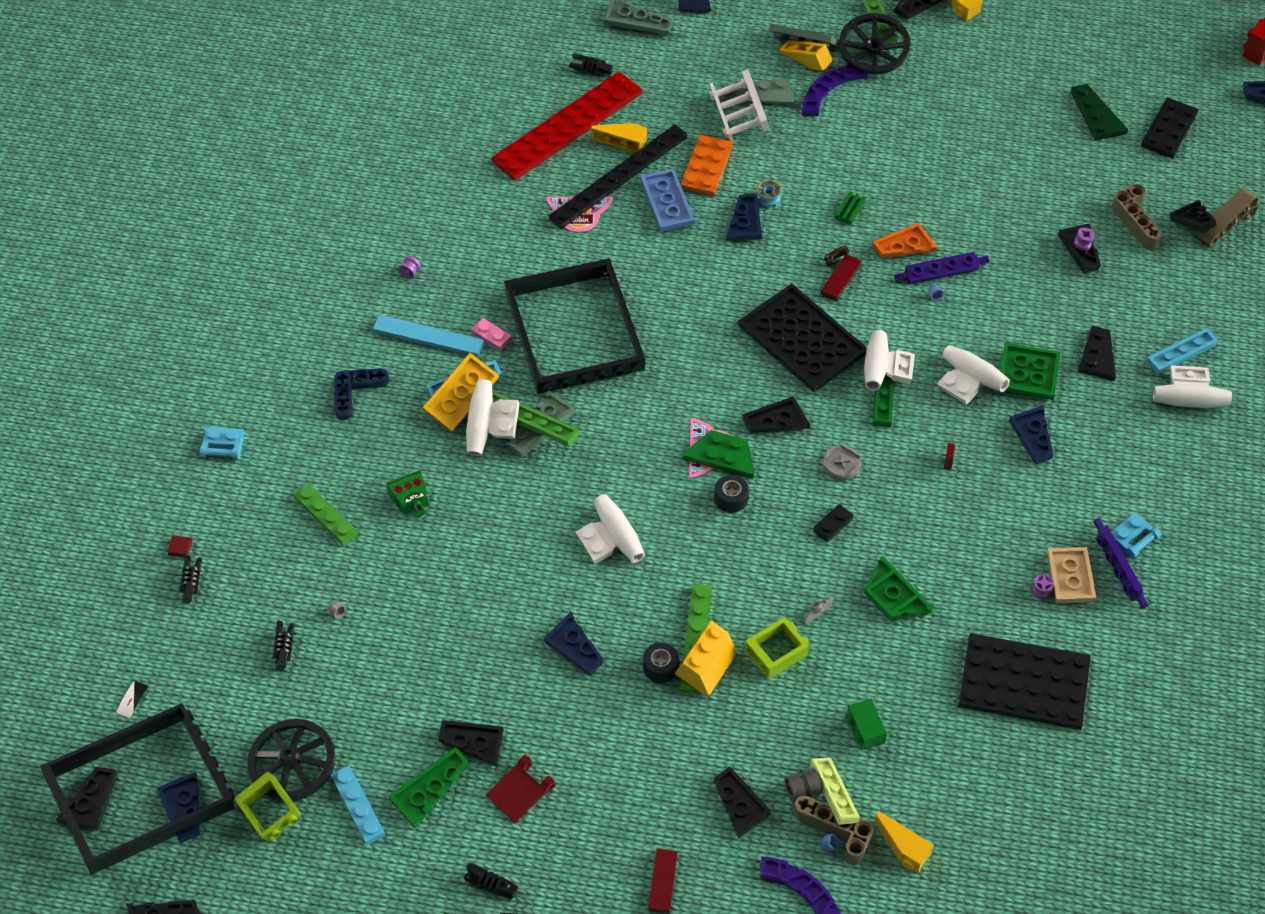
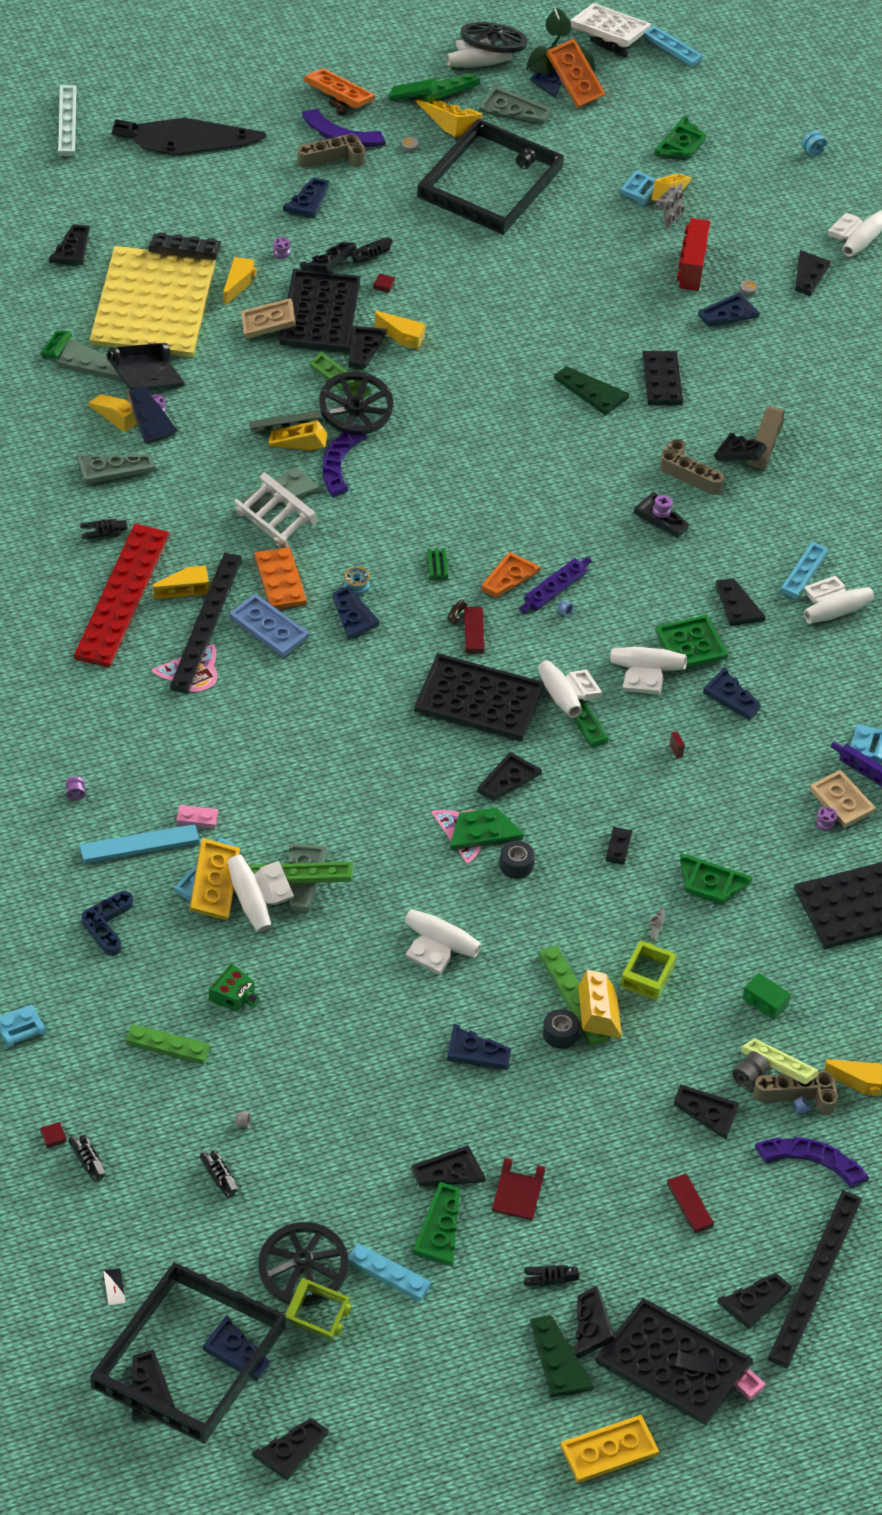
camera: 35 degrees left, 5 degrees down
(564, 277) = (190, 763): black door -> none
(842, 463) = (589, 791): light grey tile -> none

